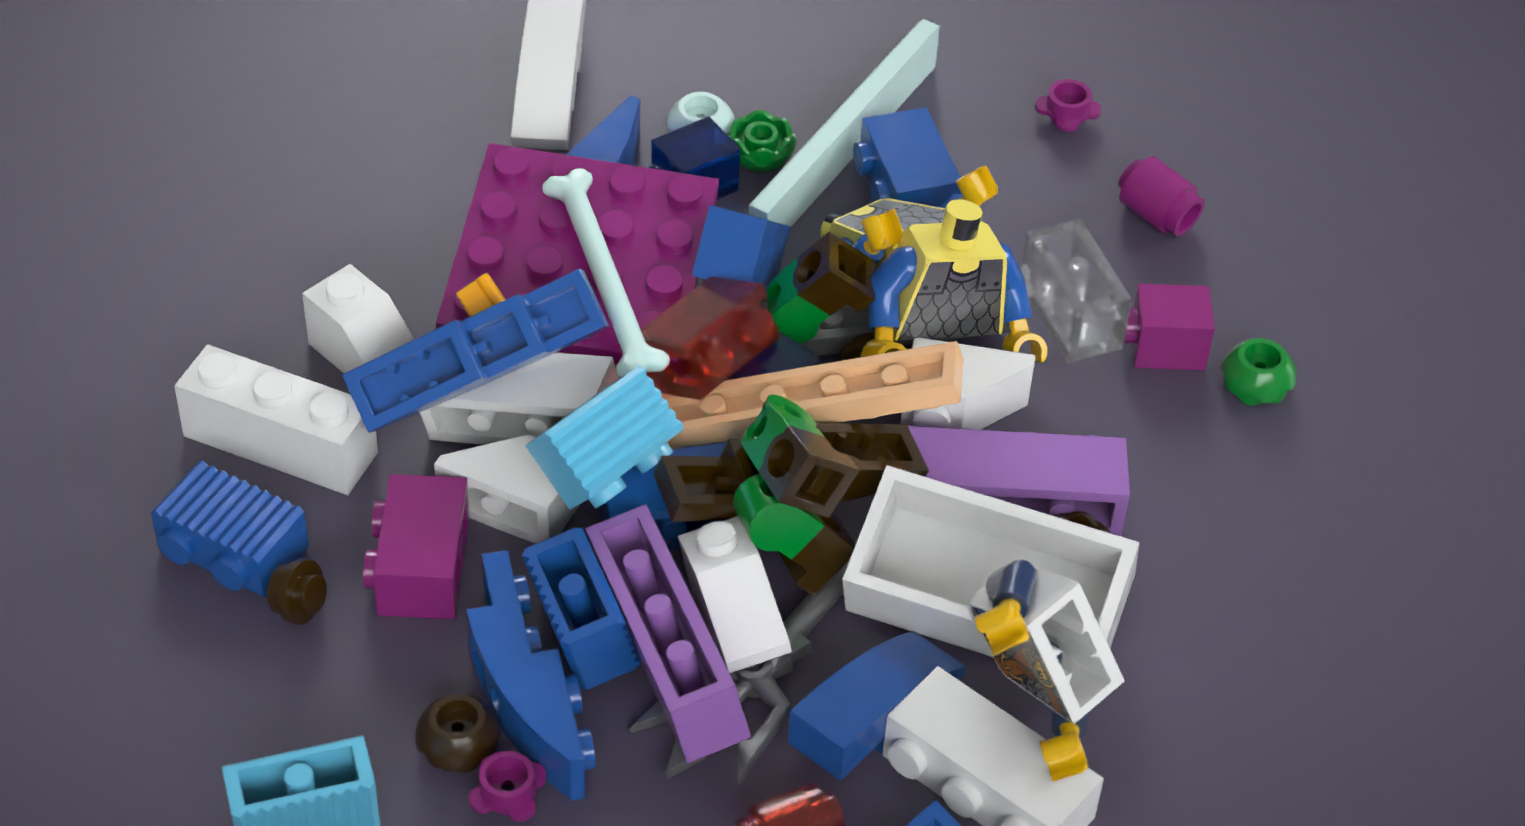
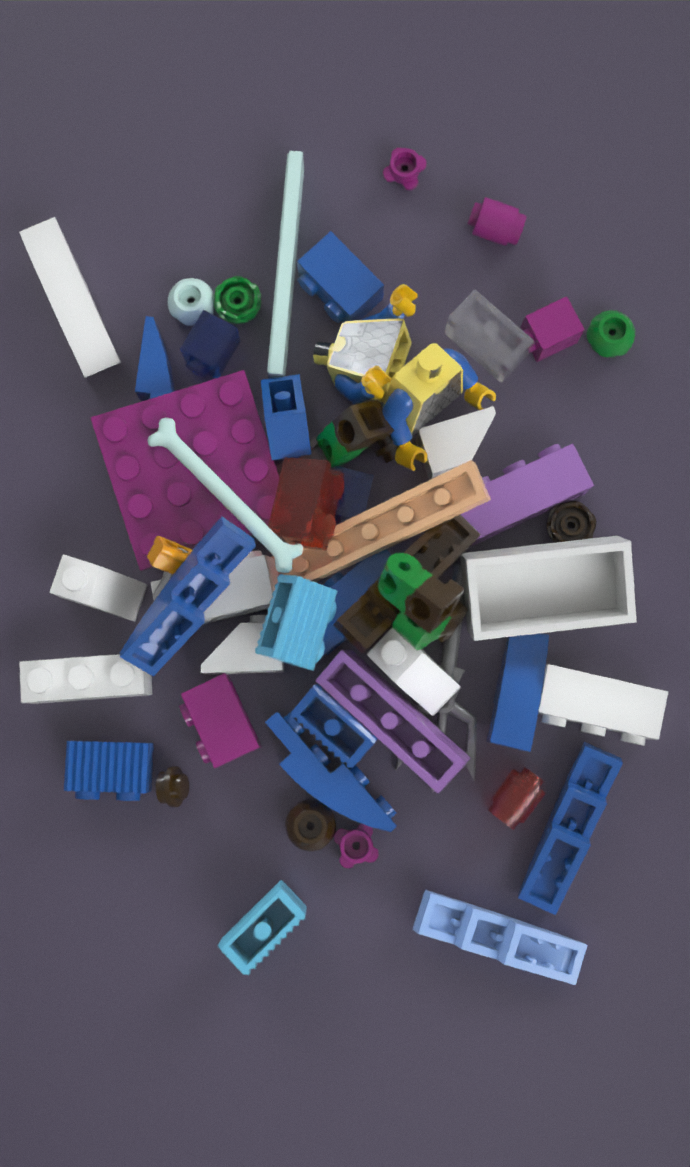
camera: 25 degrees left, 35 degrees up
(1050, 648) = (618, 654): torso -> none

